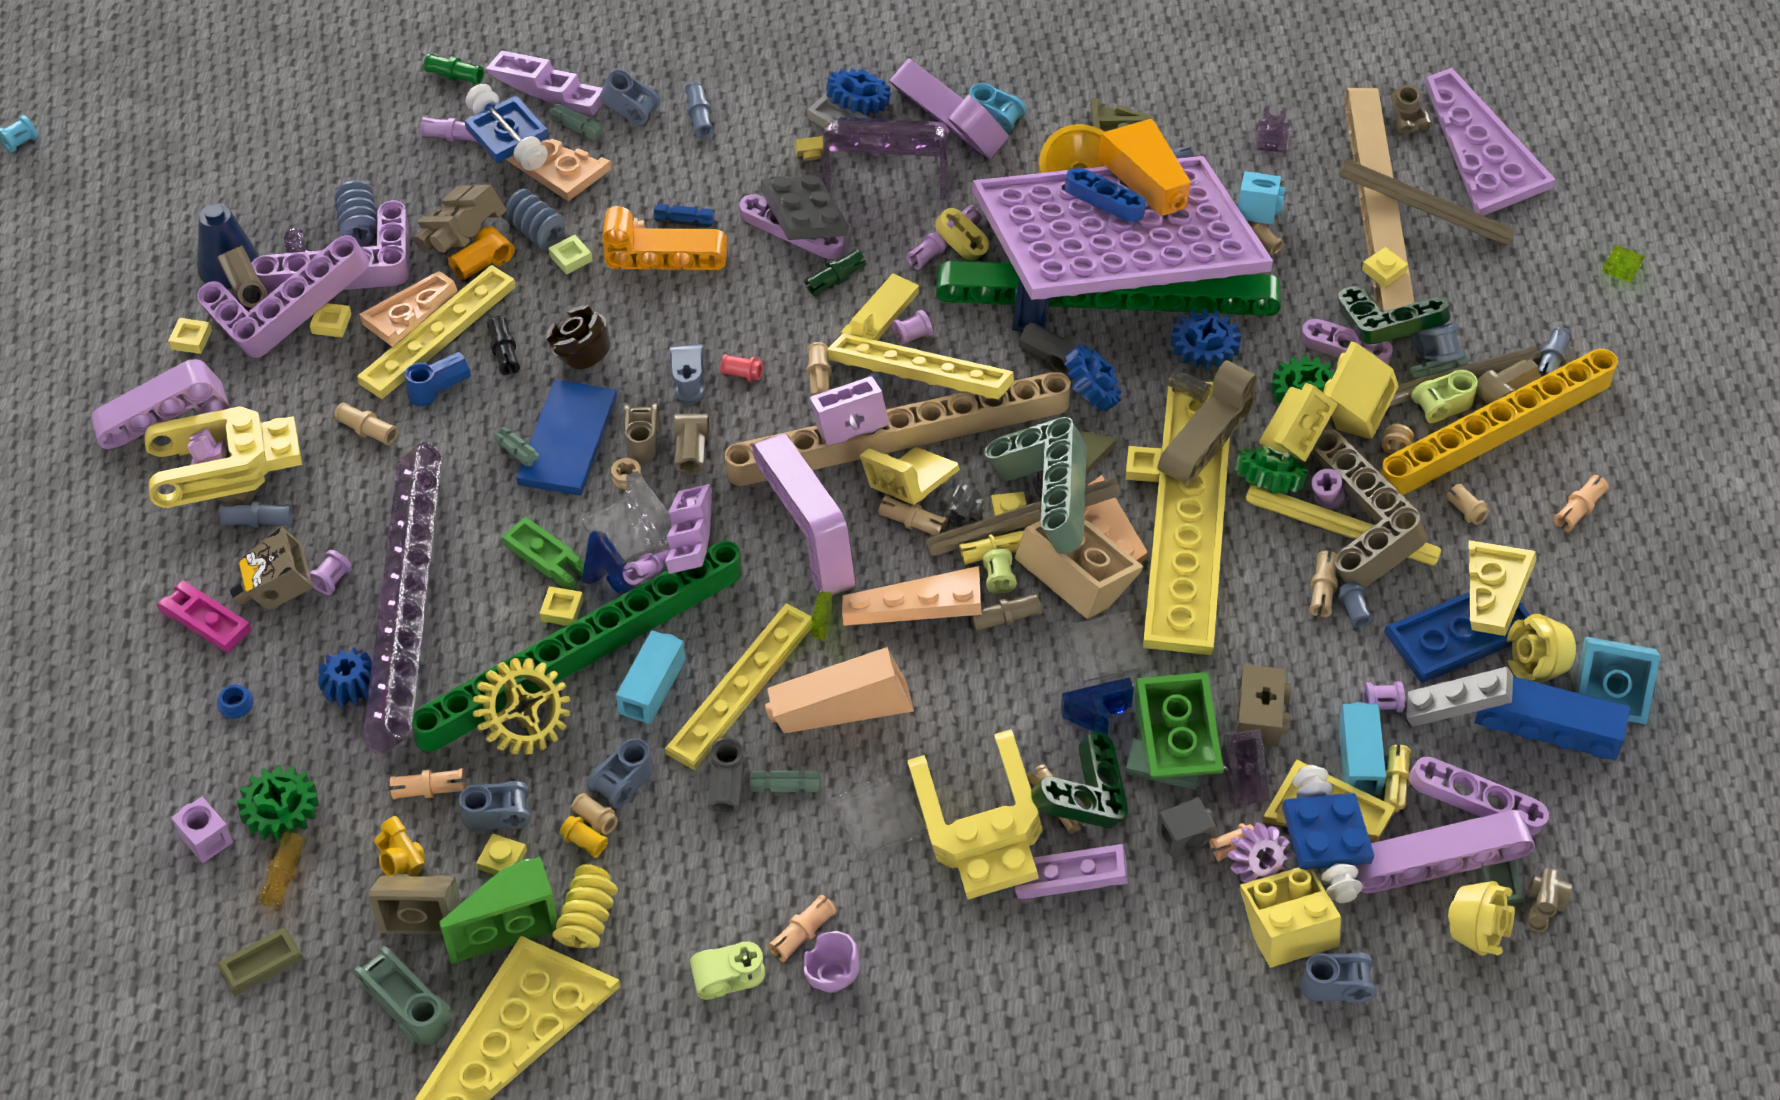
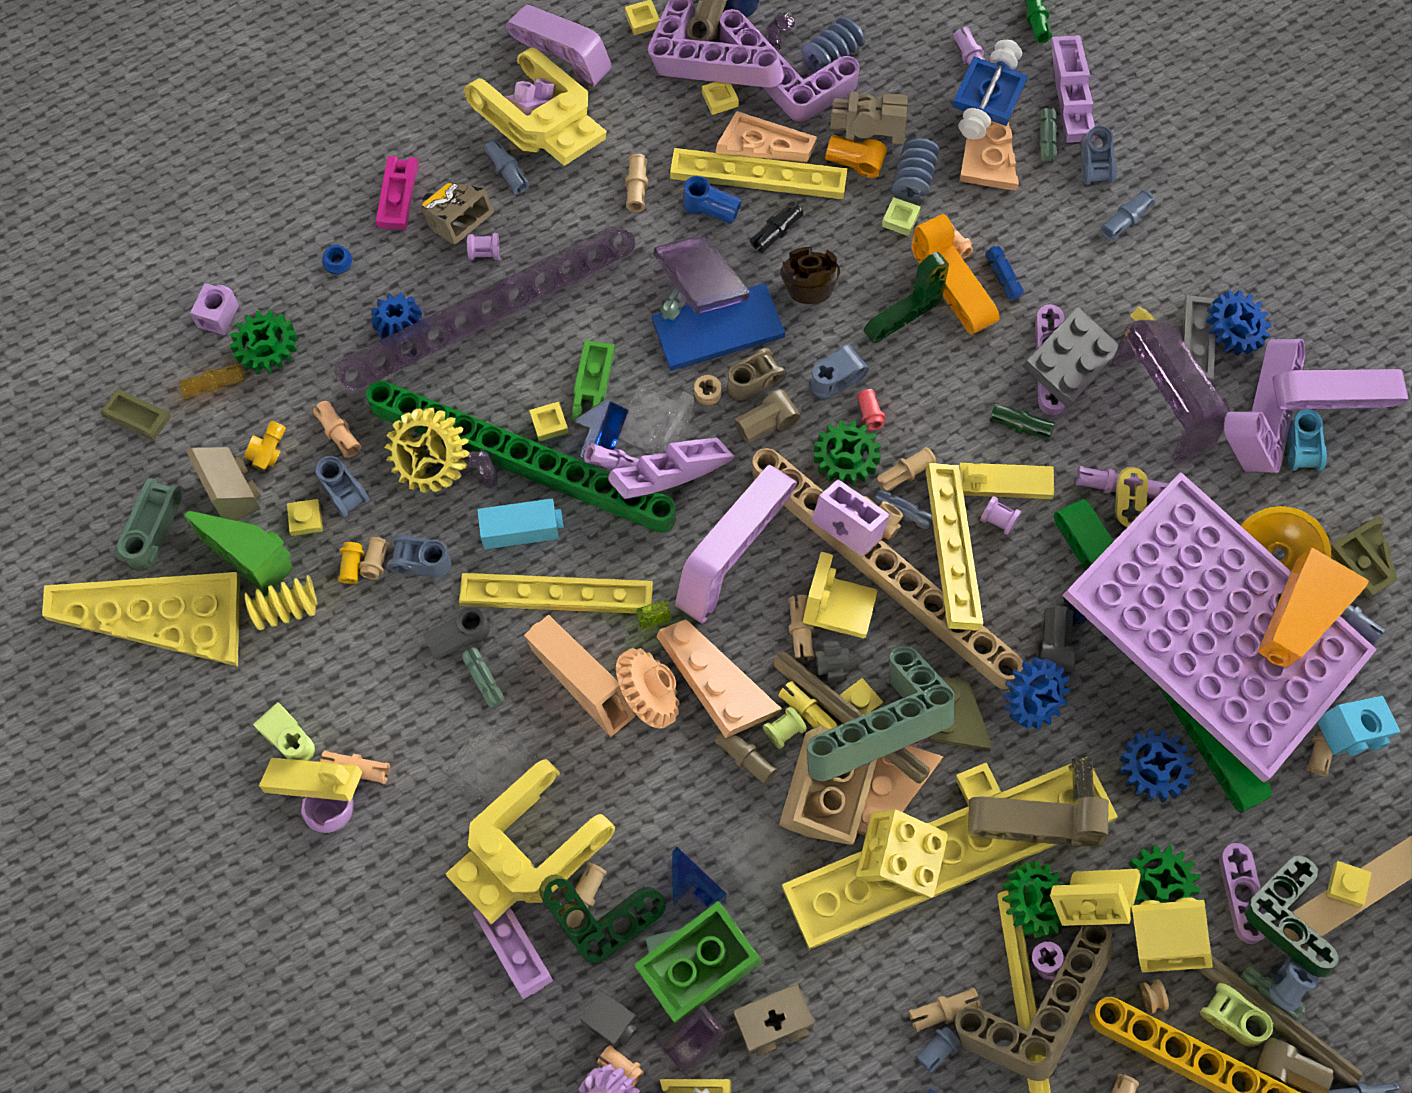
camera: 60 degrees right, 15 degrees up
(508, 416) = (701, 273): none -> clear purple tile
(579, 673) = (487, 471): none -> clear purple arm
(666, 277) = (926, 295): none -> dark green beam
(756, 406) = (850, 440): none -> green gear
(793, 962) = (310, 779): none -> light yellow hinge
(898, 637) = (648, 687): none -> light nougat gear
(970, 58) = (1340, 389): none -> lavender beam
(1117, 201) = (1252, 580): blue beam -> none
(1170, 535) = (902, 852): none -> light yellow bracket

